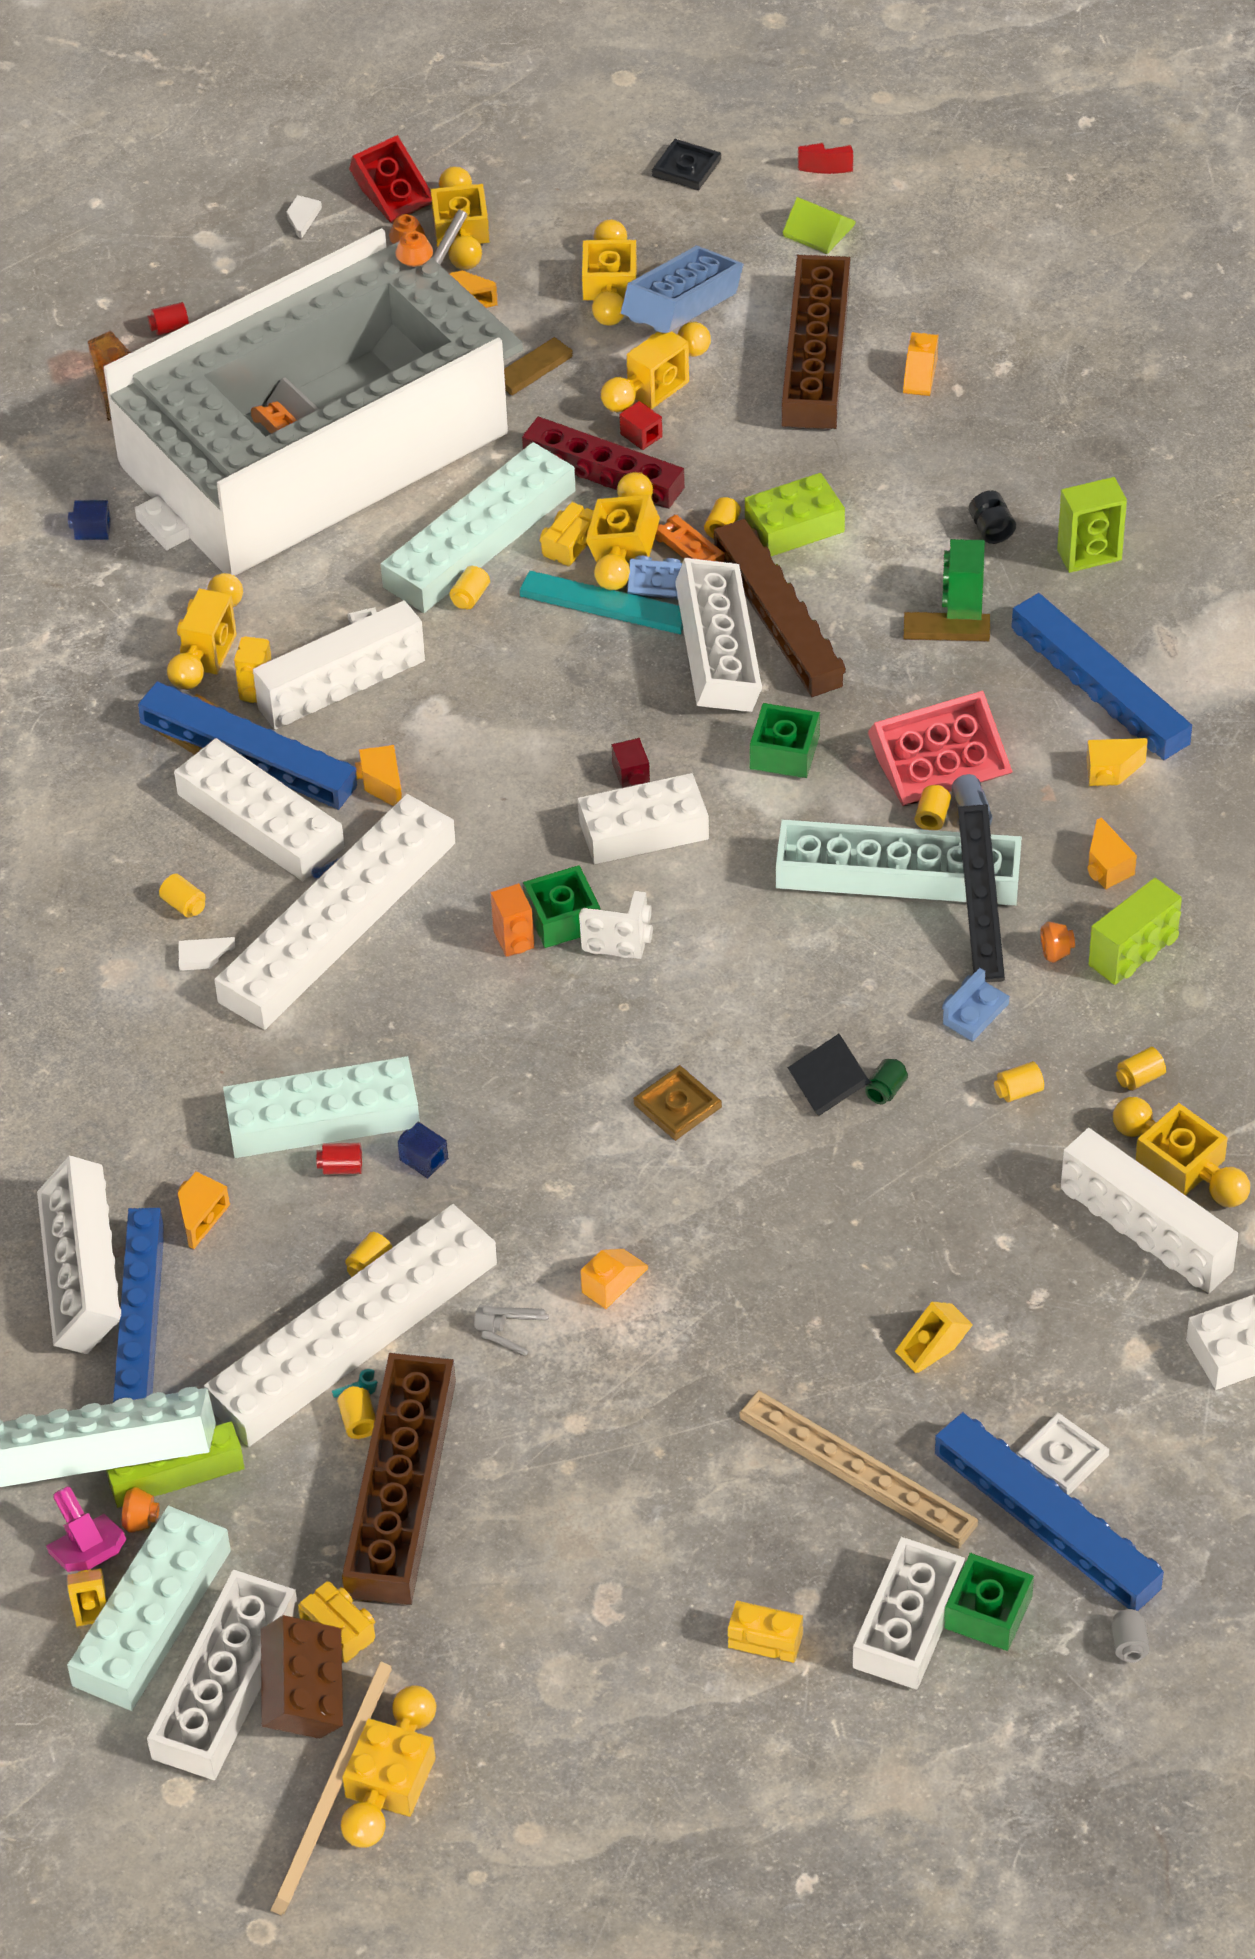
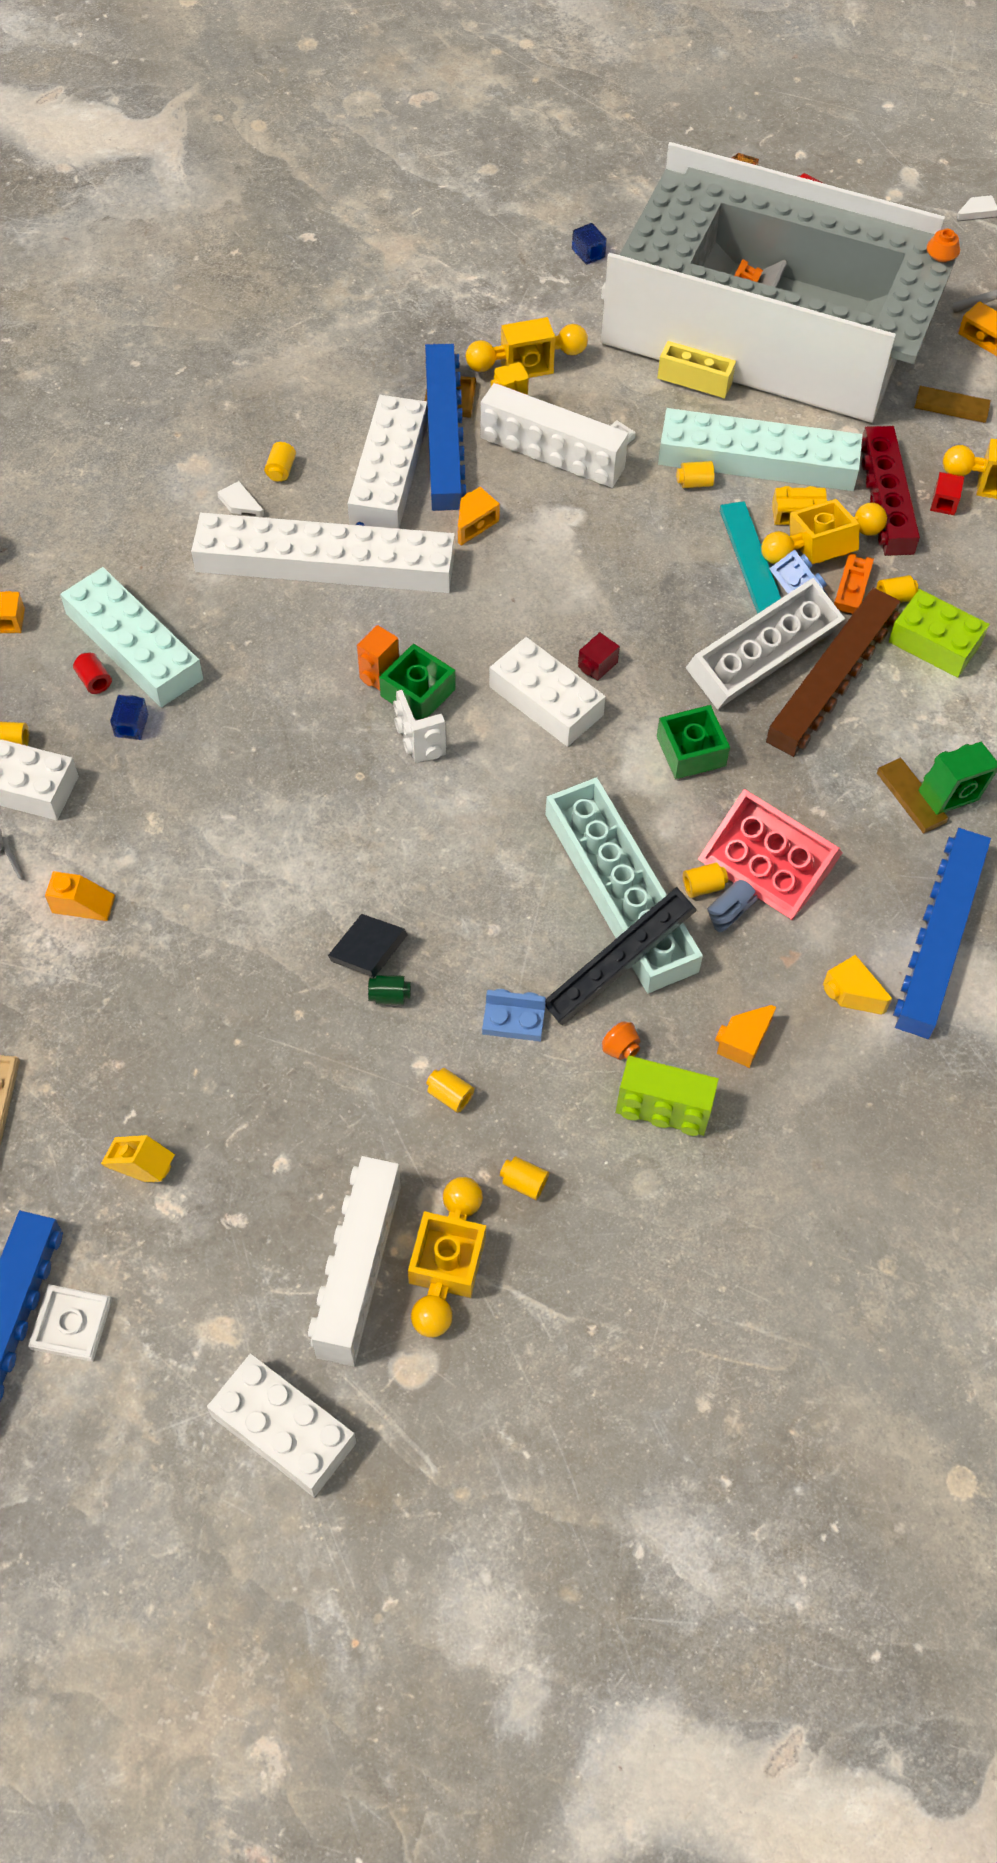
camera: 55 degrees right, 10 degrees up
(341, 520) = (696, 369): none -> light yellow brick
(677, 1102) = (282, 857): pearl gold tile -> none

